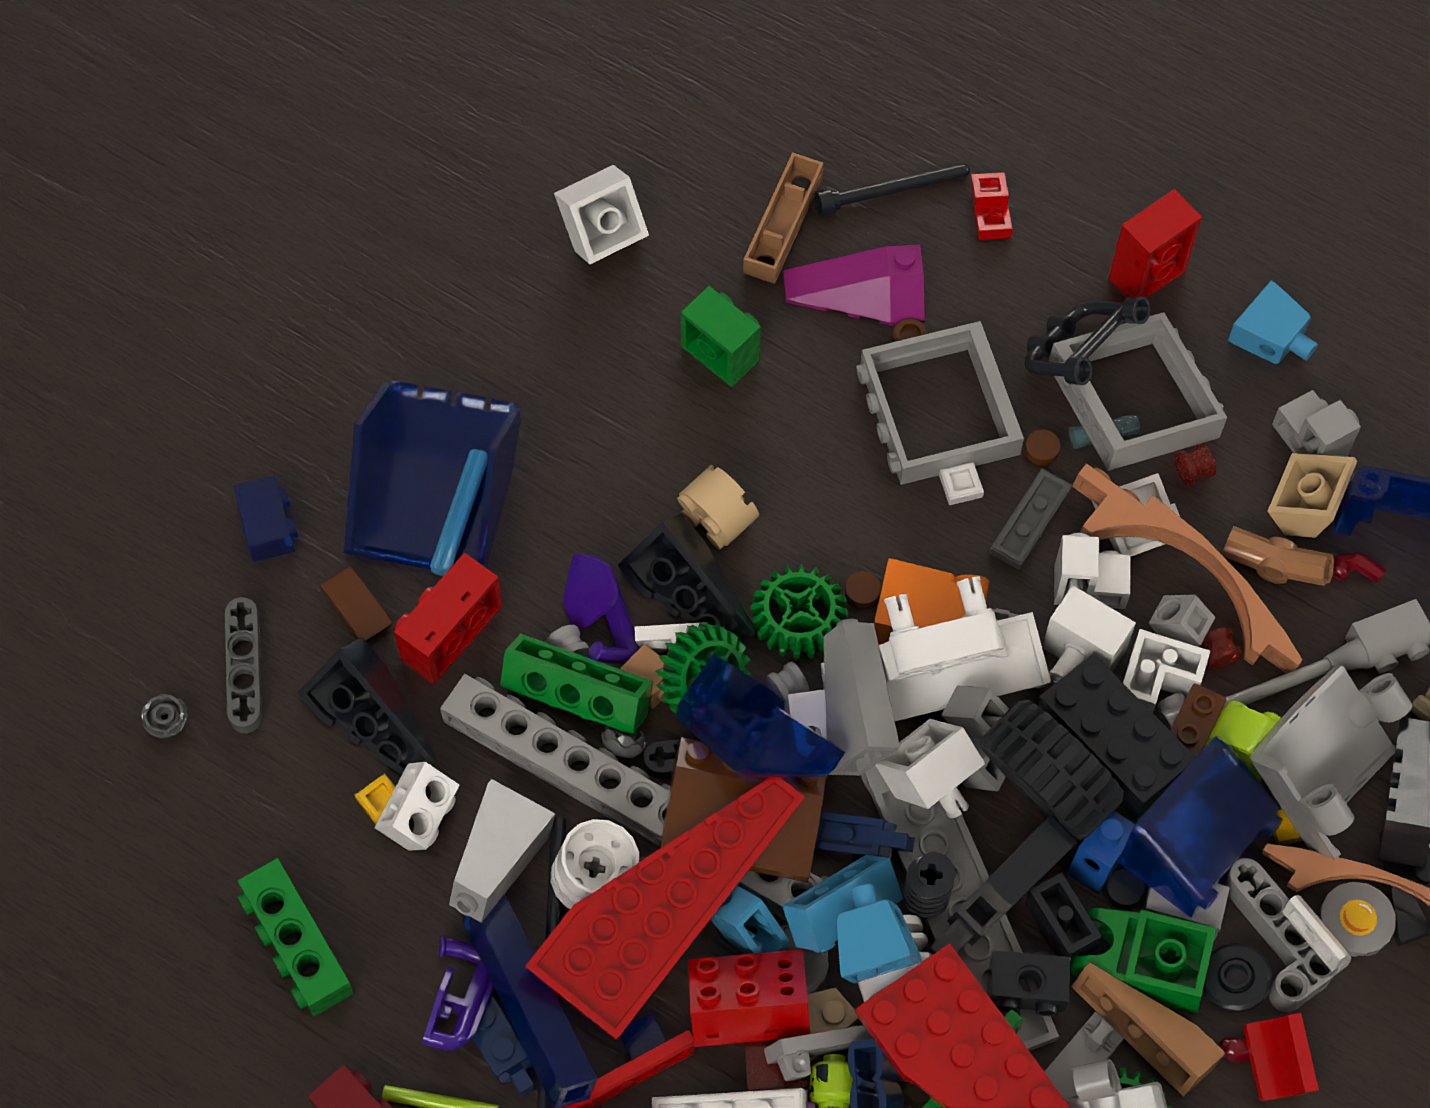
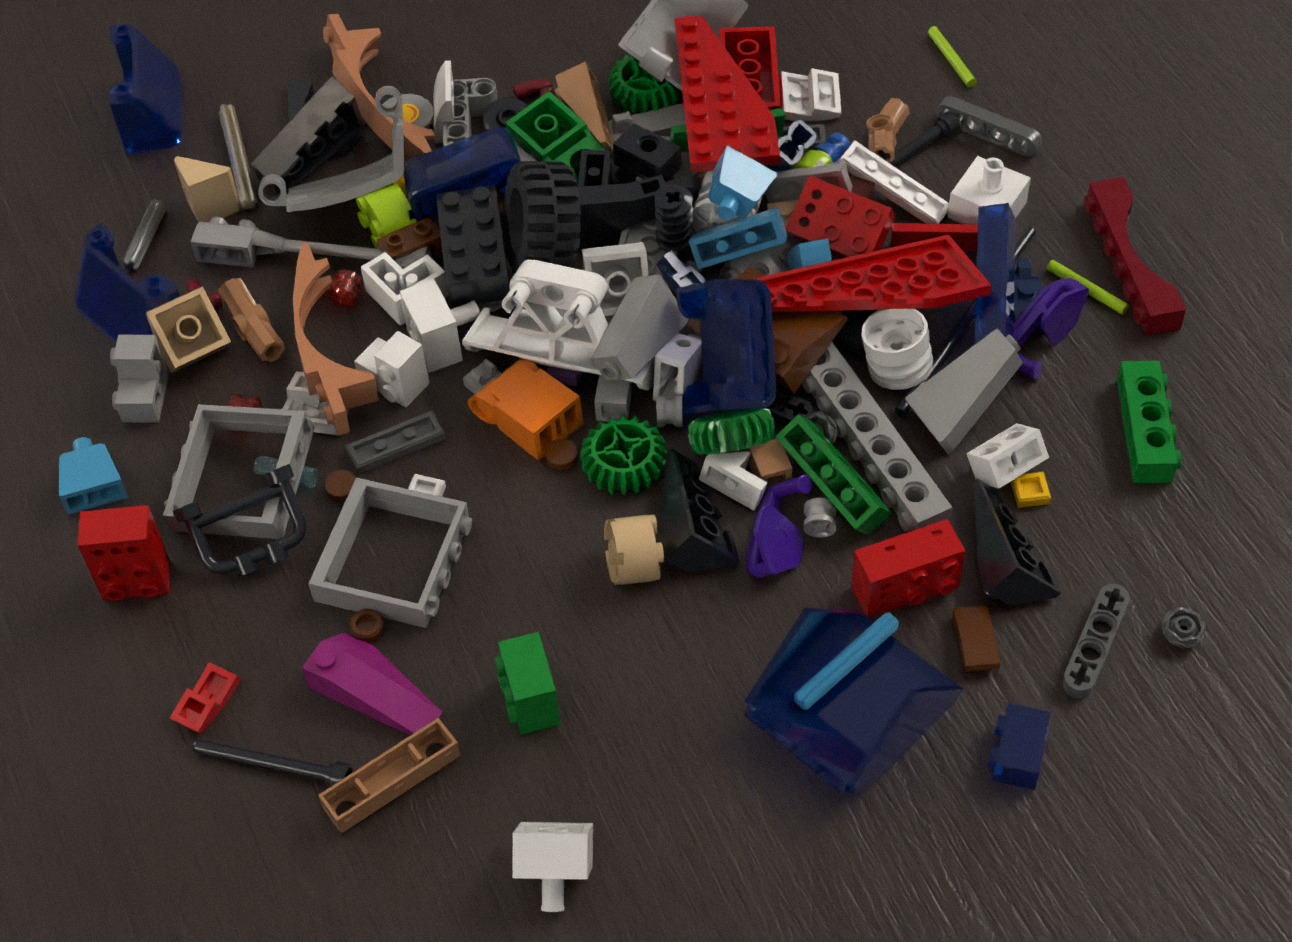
camera: 145 degrees left, 10 degrees down
(1182, 619) = (347, 301): light grey brick -> none
(1280, 1057) = (517, 66): red panel -> none

